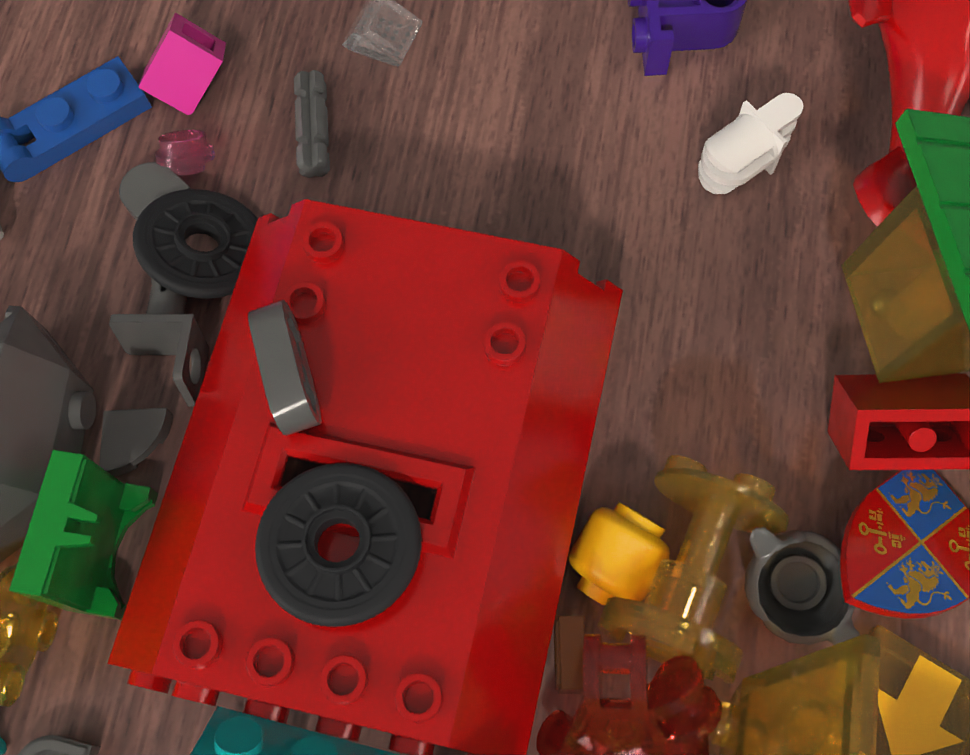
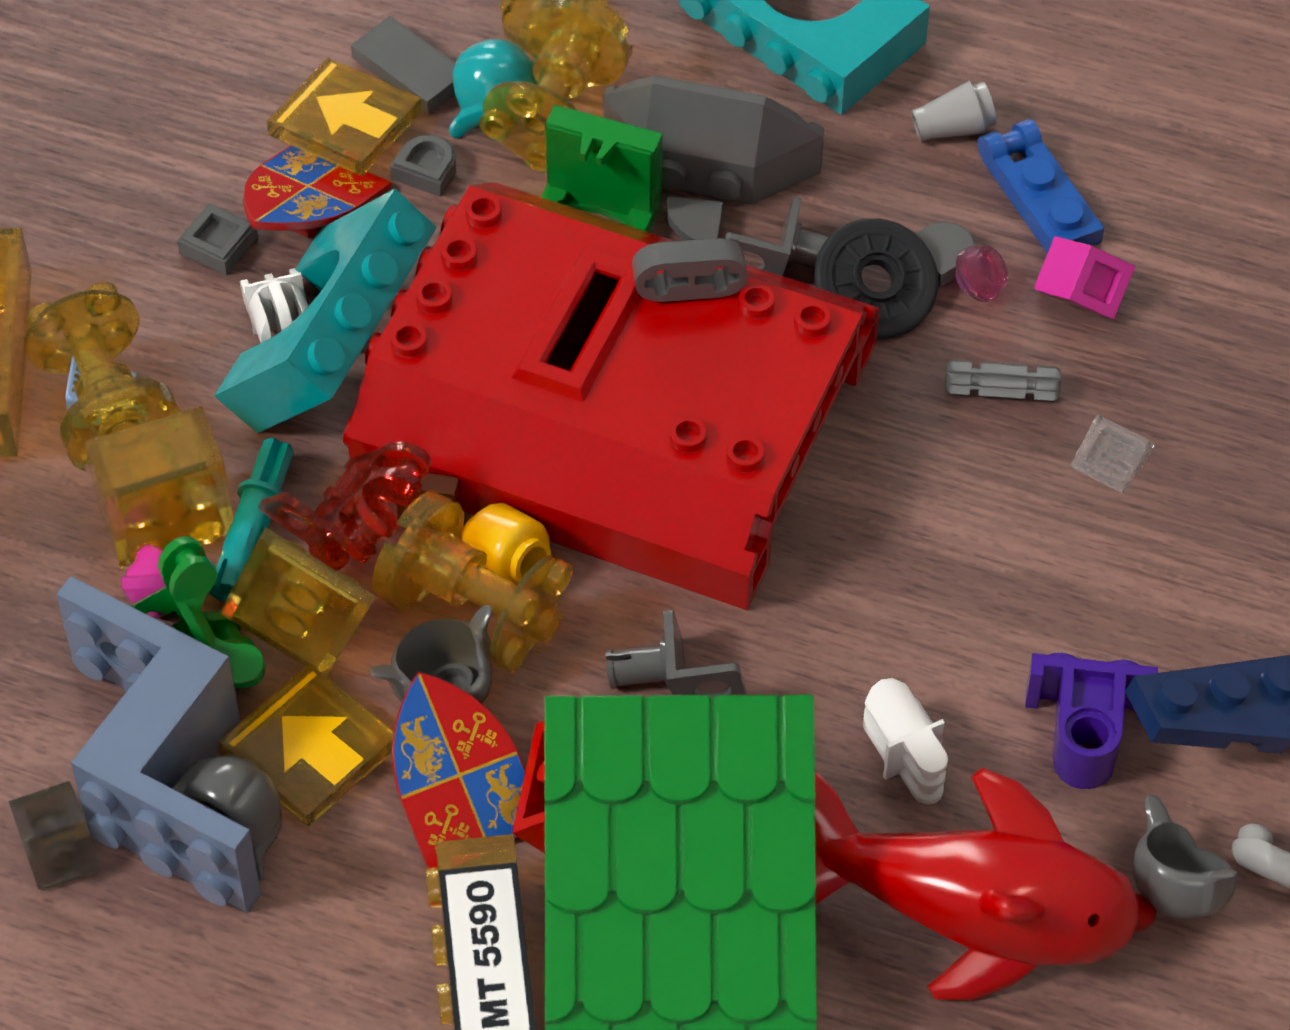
camera: 95 degrees right, 15 degrees down
(349, 589) = (536, 325): black wheel -> none
(721, 365) = (666, 664): none -> dark grey bracket

